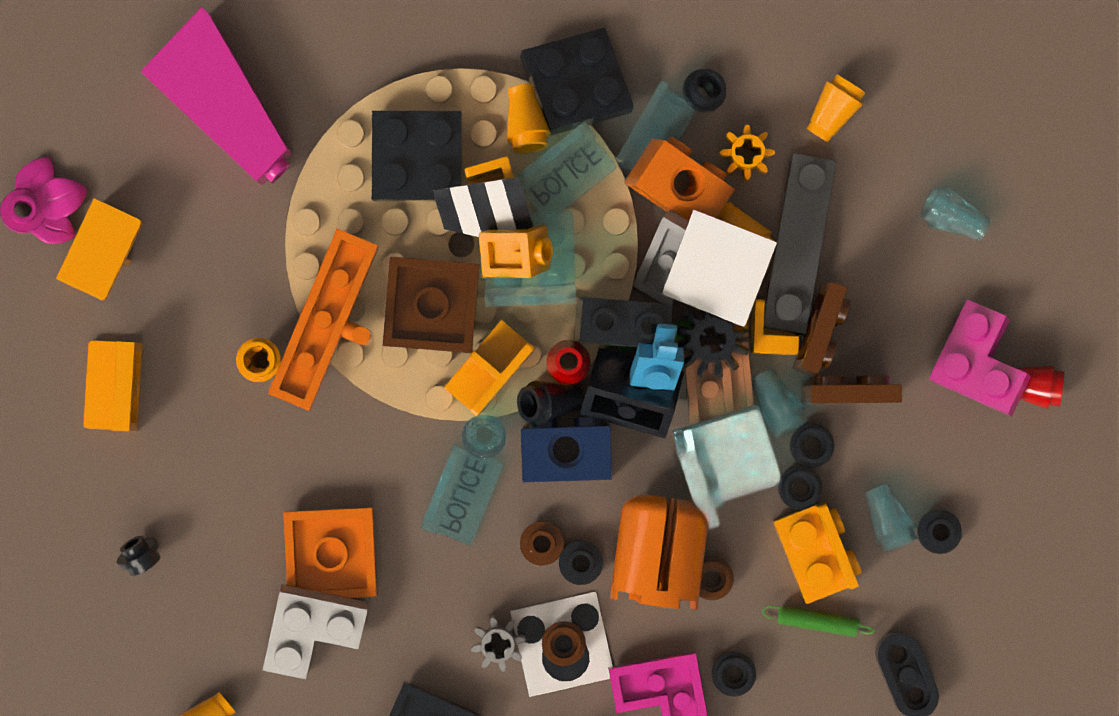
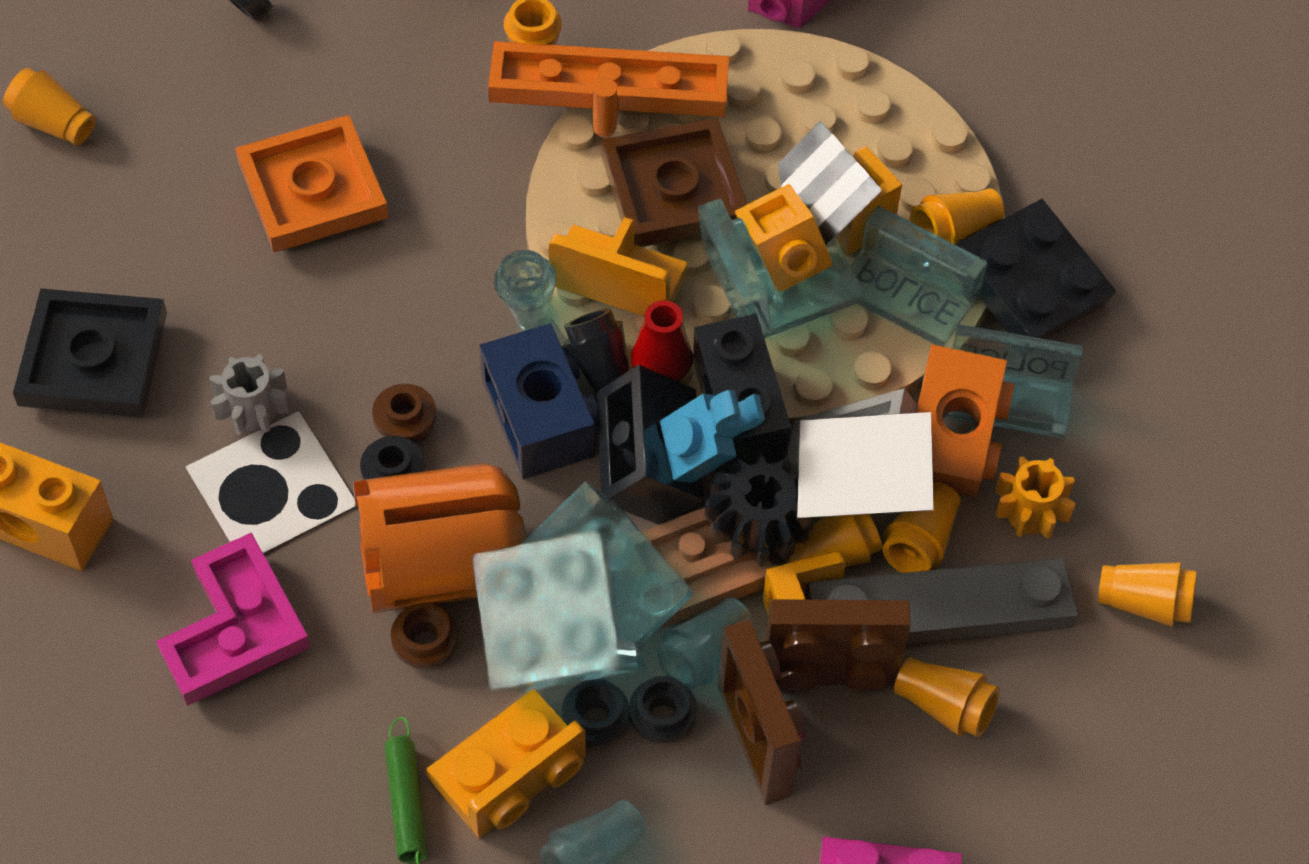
camera: 65 degrees right, 30 degrees down
(310, 617) = (215, 172): plate -> none
(415, 154) = (862, 110): black plate -> none
(461, 496) = (436, 299): clear light blue panel -> none
(559, 657) = (269, 460): reddish brown plate -> none
(712, 83) = (1106, 420): black plate -> none
(743, 684) = (292, 688): black plate -> none
(756, 503) = (551, 614): none -> clear light blue bracket
(864, 265) = (950, 695): none -> light orange cone
(952, 214) = (1076, 794): clear light blue cone -> none

